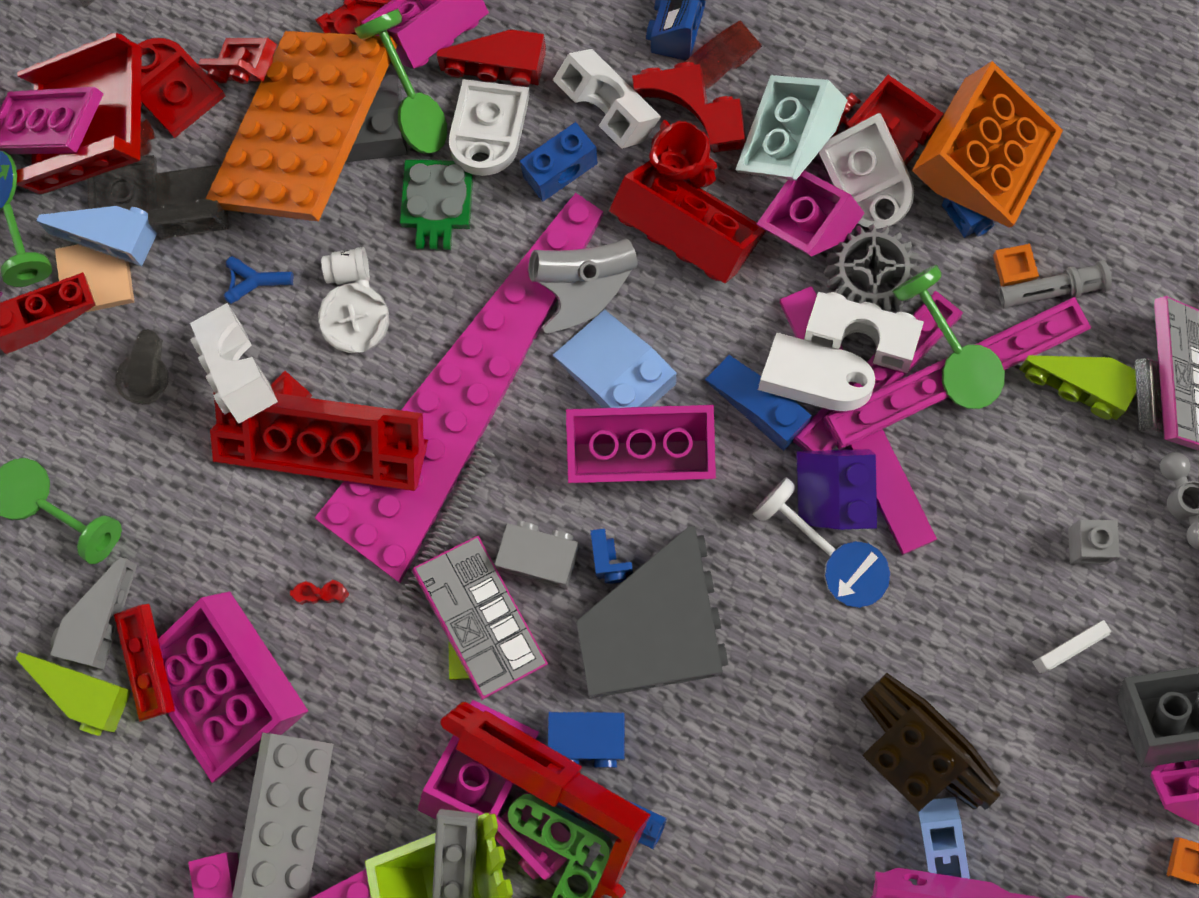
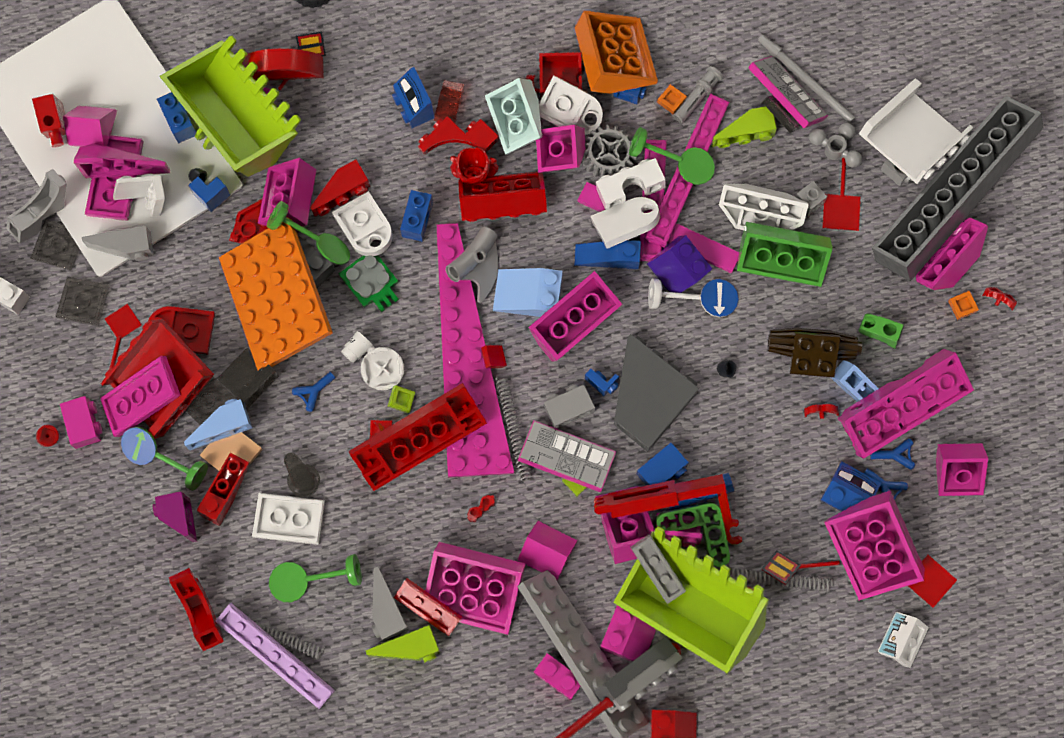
camera: 45 degrees left, 0 degrees up
(87, 411) = (288, 518): none -> white tile
(114, 19) = (121, 323): none -> red piece
(237, 383) = (367, 437): white arch -> none
(241, 60) = (212, 288): red bracket -> none
(344, 374) = (401, 399): none -> lime tile
(353, 715) = (547, 549): none -> dark pink slope
(500, 413) = (493, 356): none -> red tile
(590, 79) = (398, 163): white arch -> none
(785, 676) = (726, 368): none -> black hinge
(868, 837) = (828, 408): none -> red piece
(994, 587) = (784, 254): none -> bright green slope
(1014, 503) = (761, 206): none -> white wedge
(1044, 799) = (881, 329): none -> bright green leg
(1072, 647) = (839, 253): white tile -> none
(1126, 591) = (841, 210): none -> red piece

